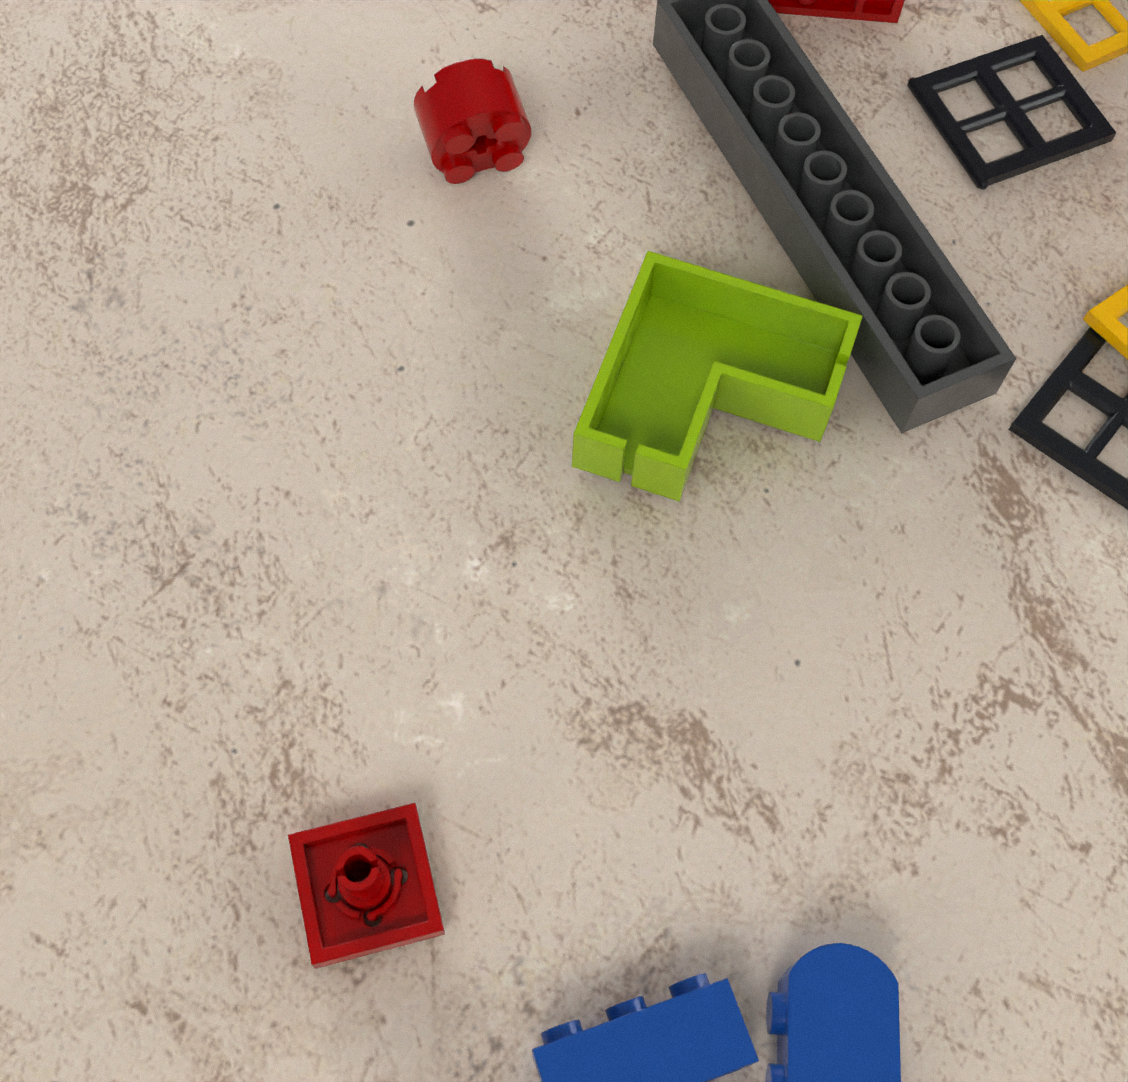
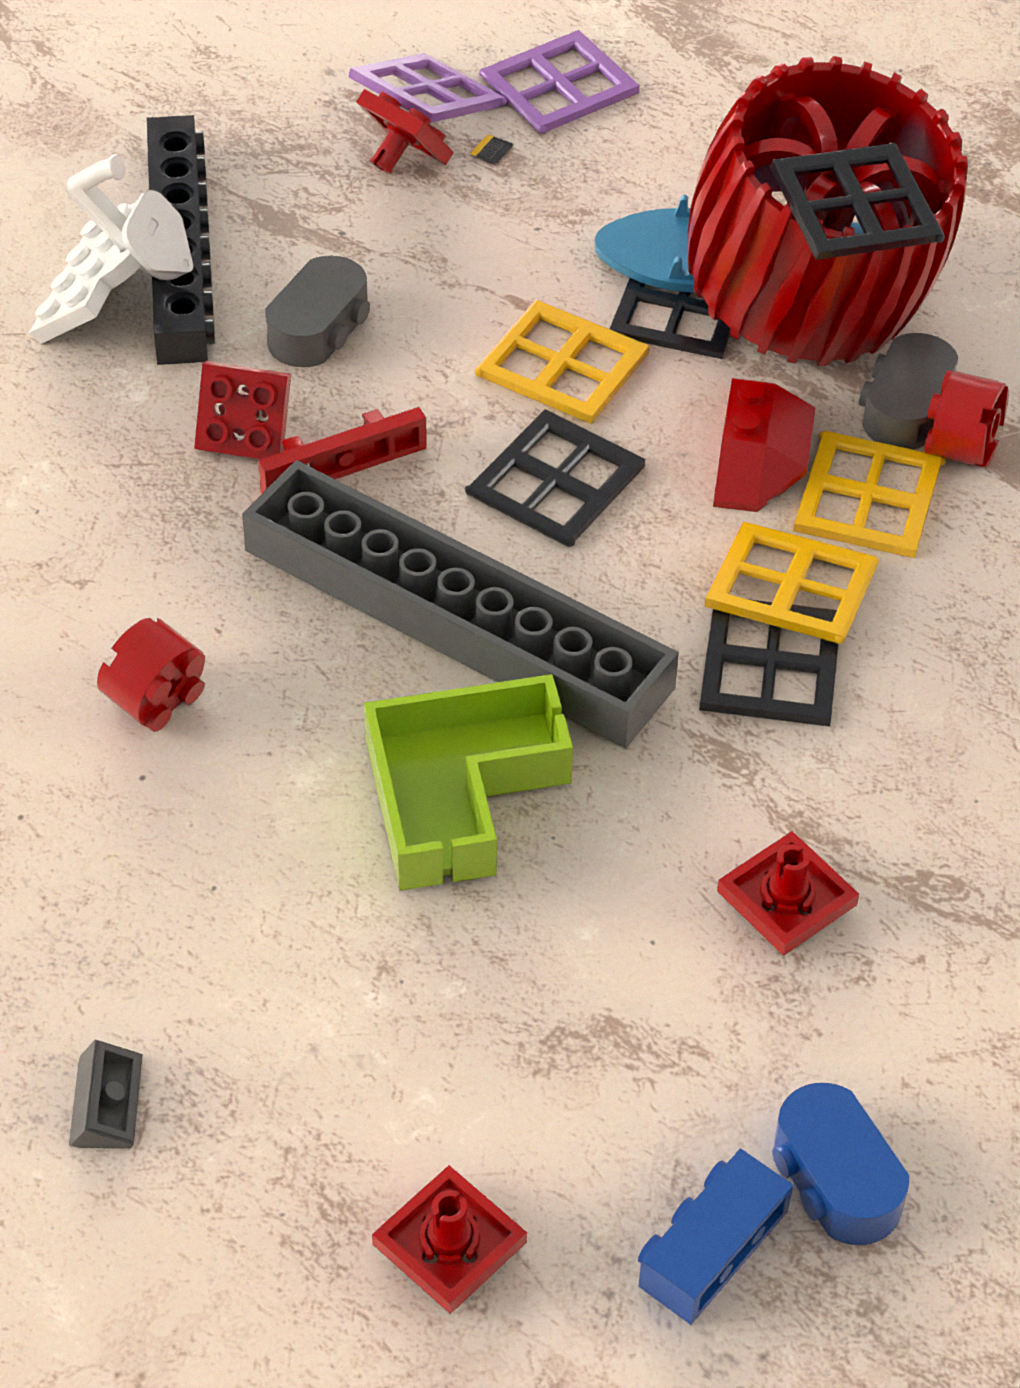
camera: 30 degrees left, 15 degrees down
(155, 532) = (106, 1097): none -> dark grey slope
(996, 682) = (788, 879): none -> red plate

